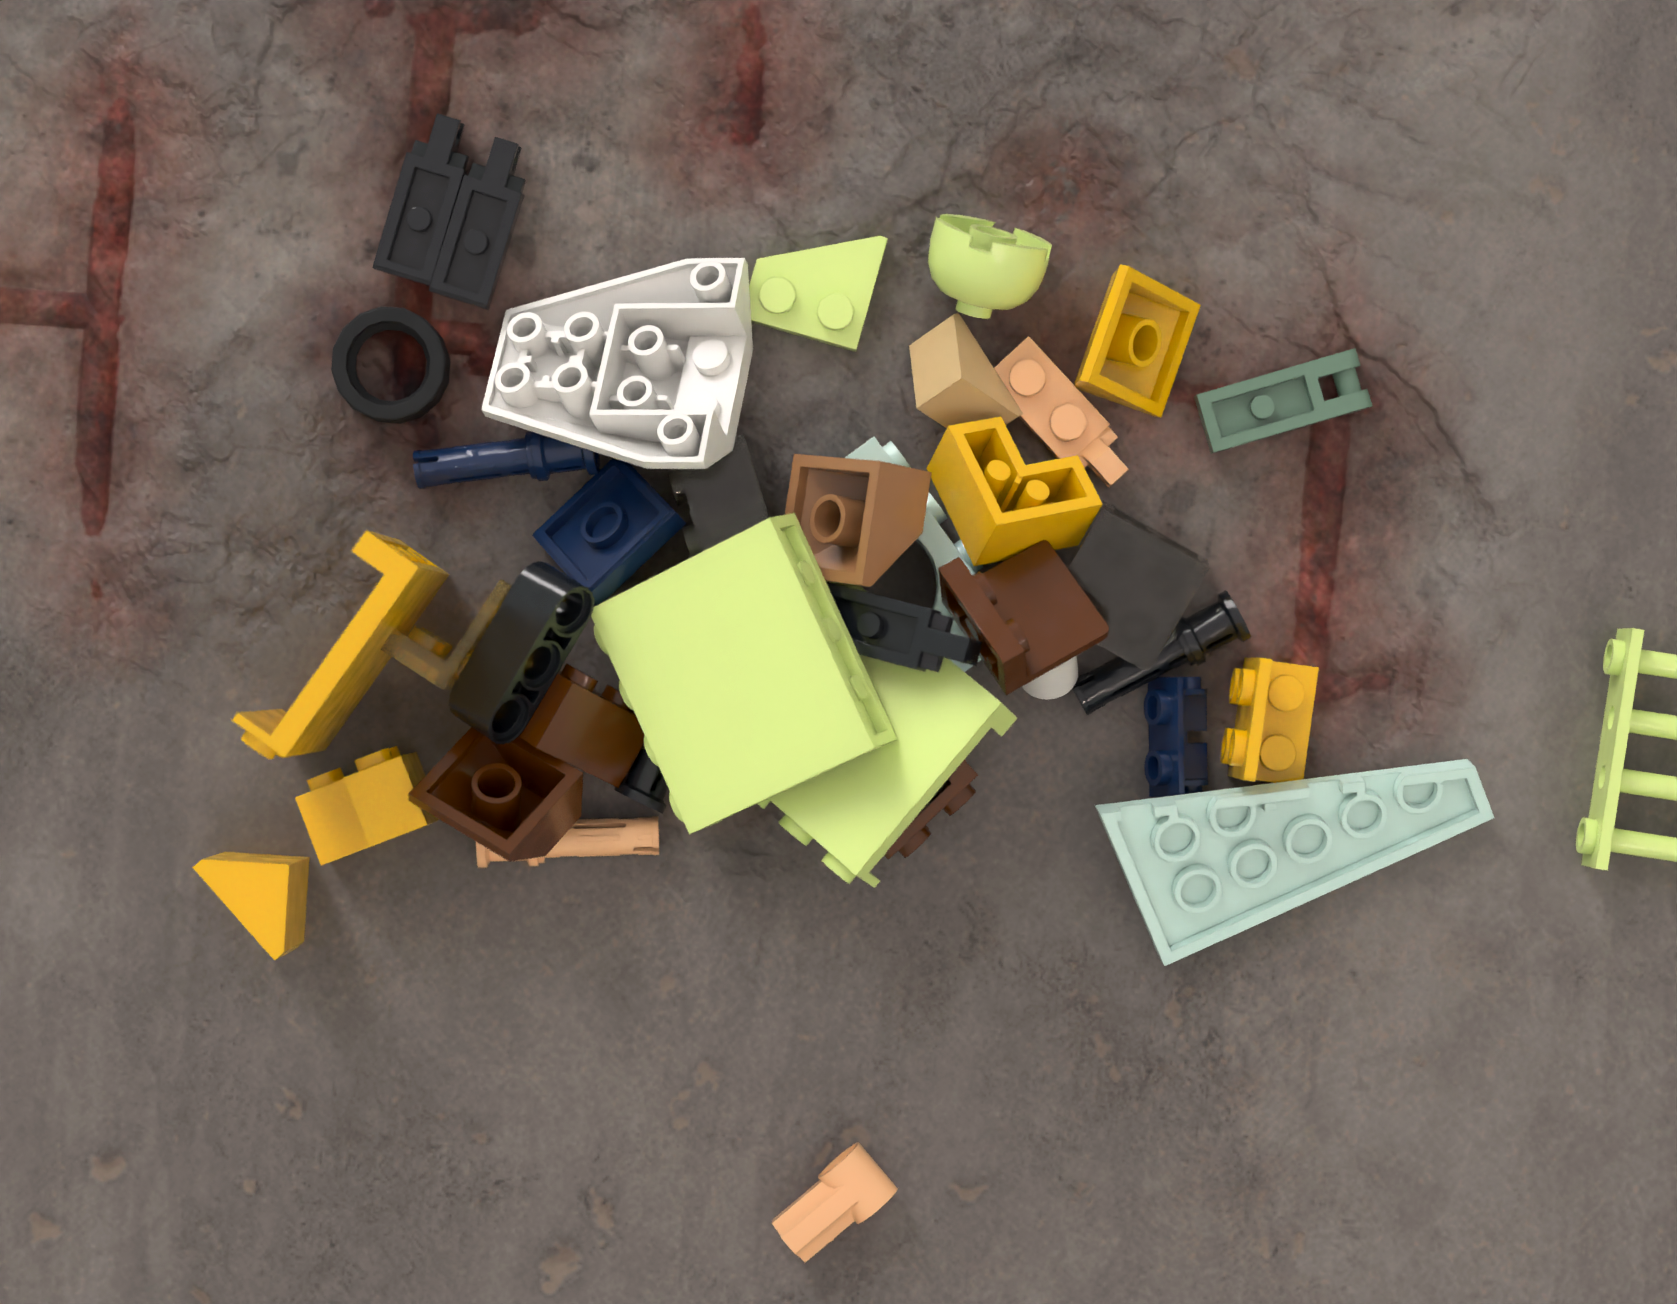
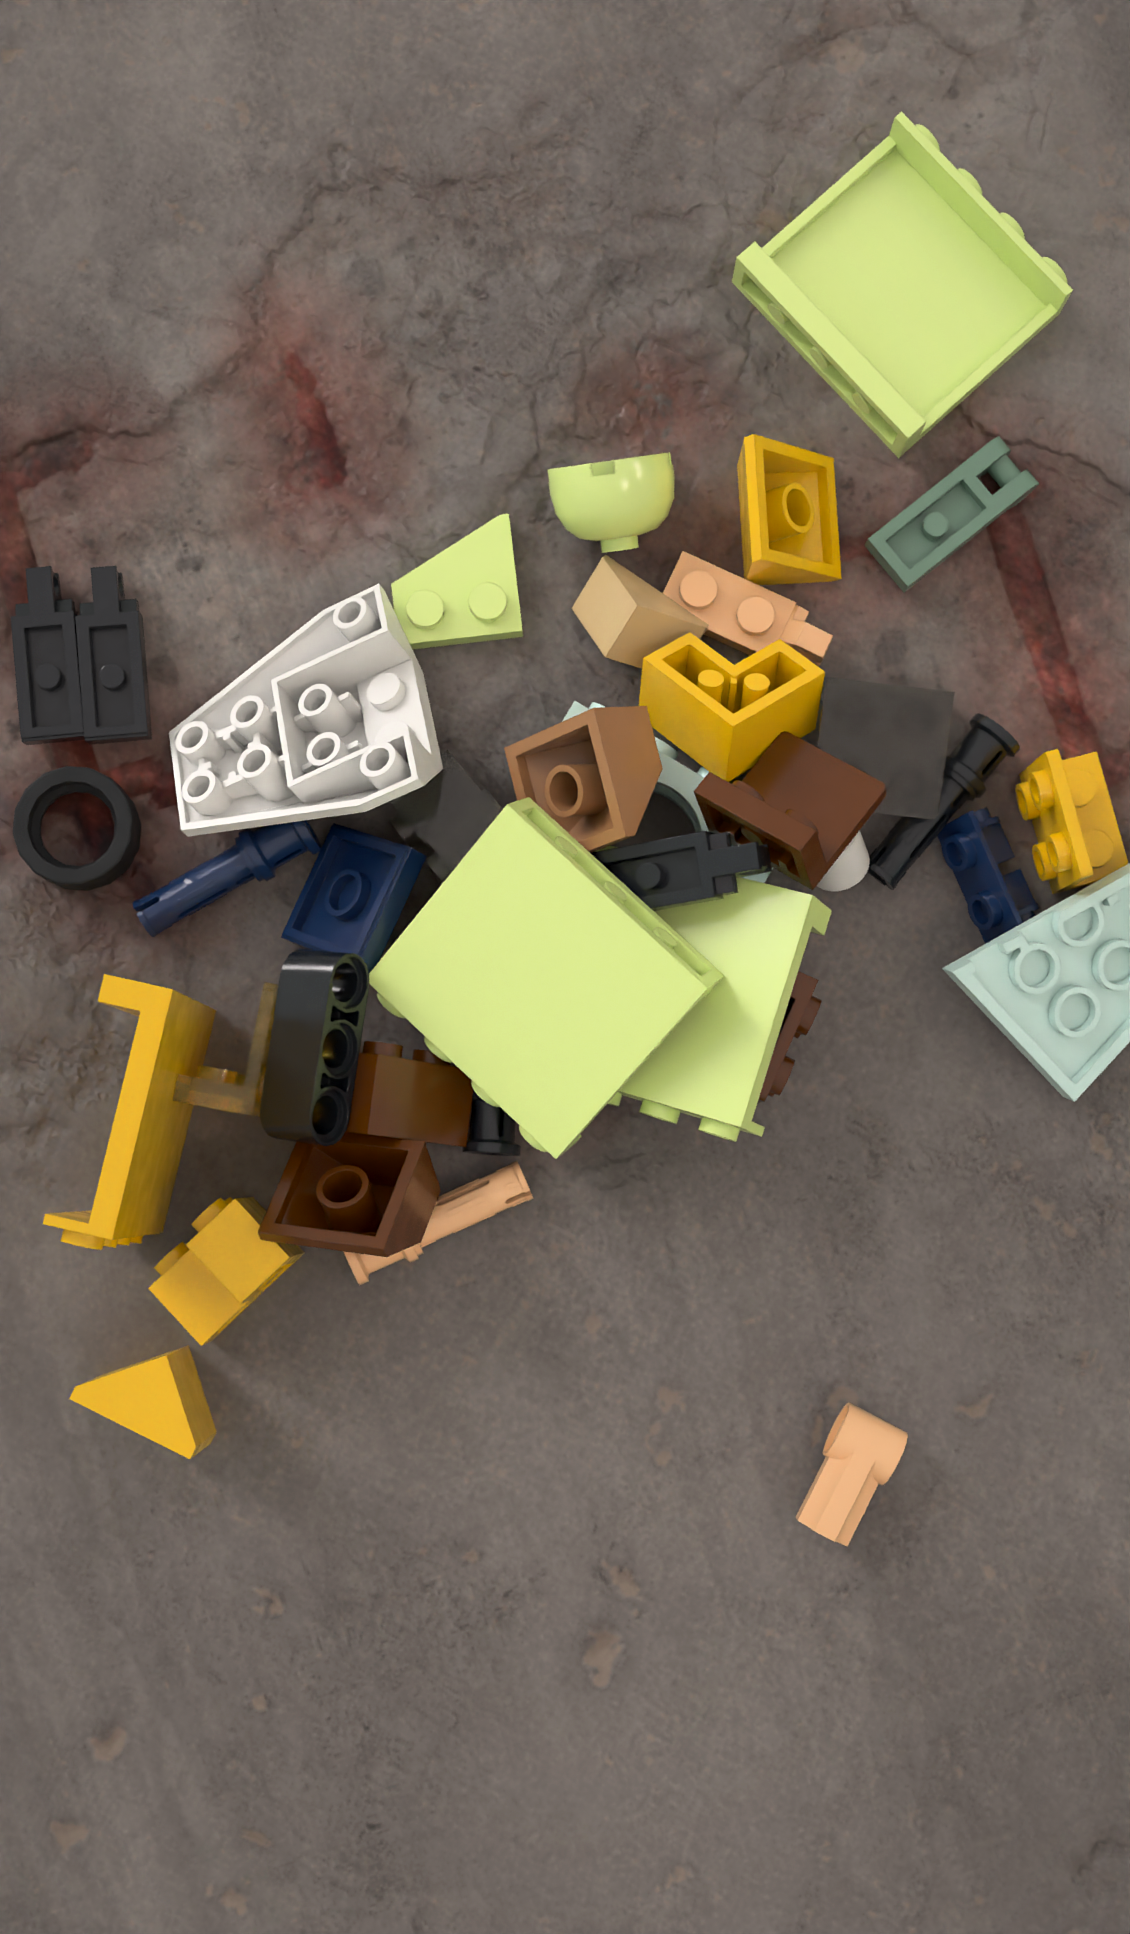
camera: 25 degrees left, 5 degrees down
(1328, 174) = (903, 286): none -> yellowish green panel

